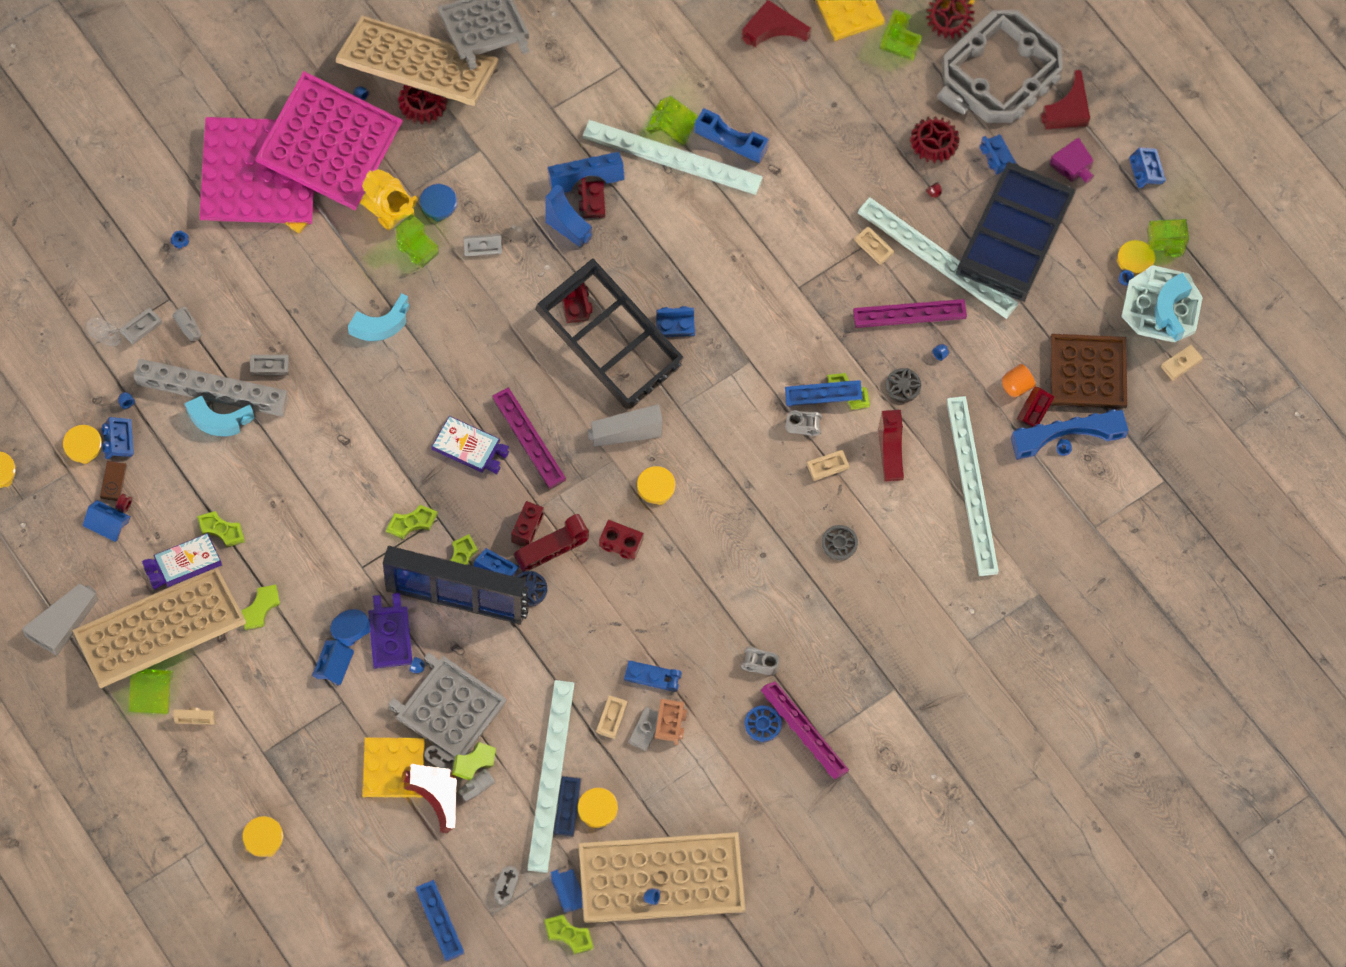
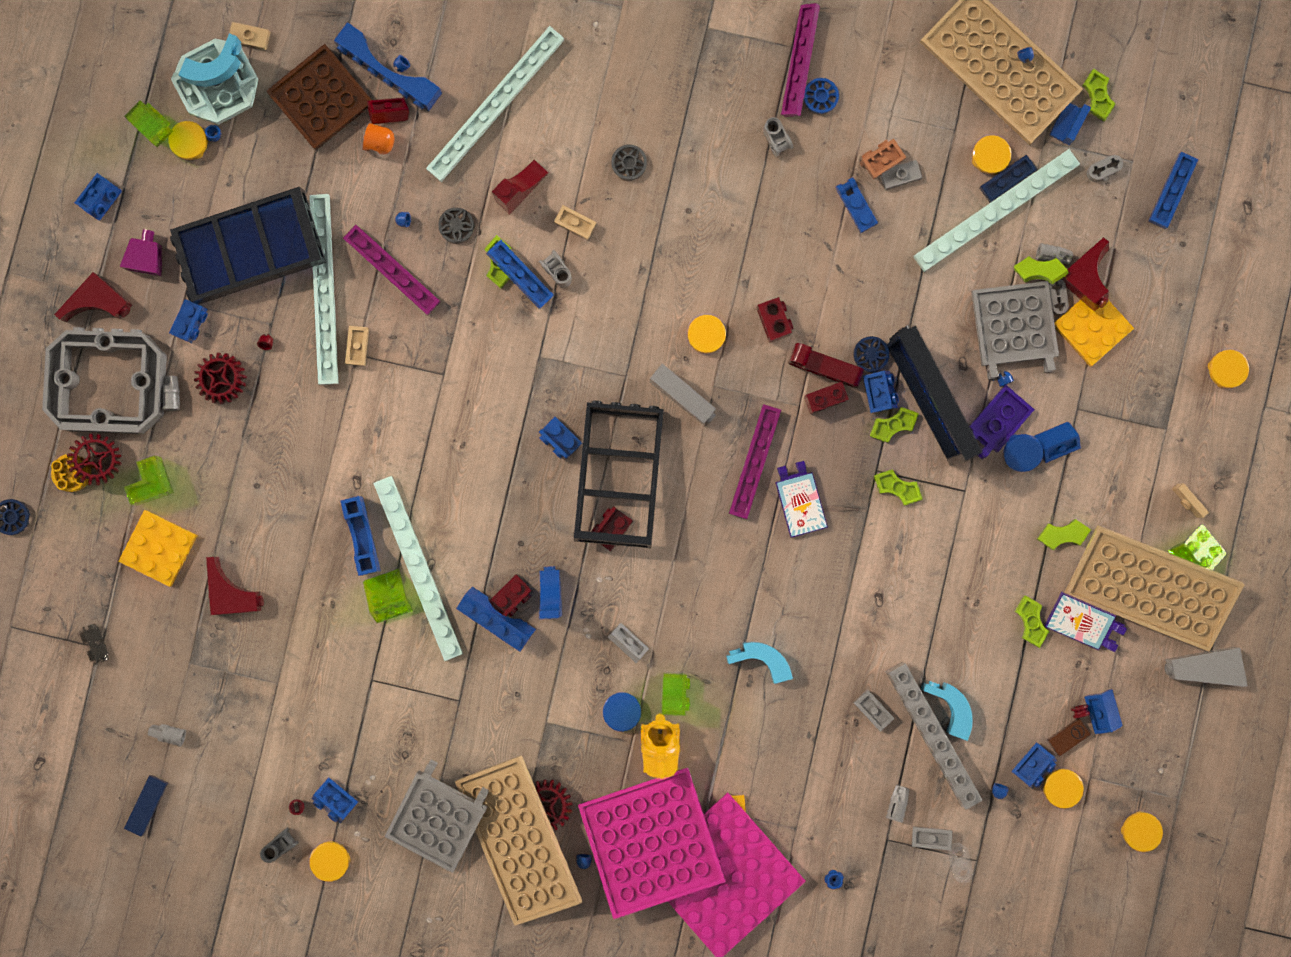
camera: 130 degrees left, 20 degrees up
(611, 717) = (915, 205): tan plate -> none

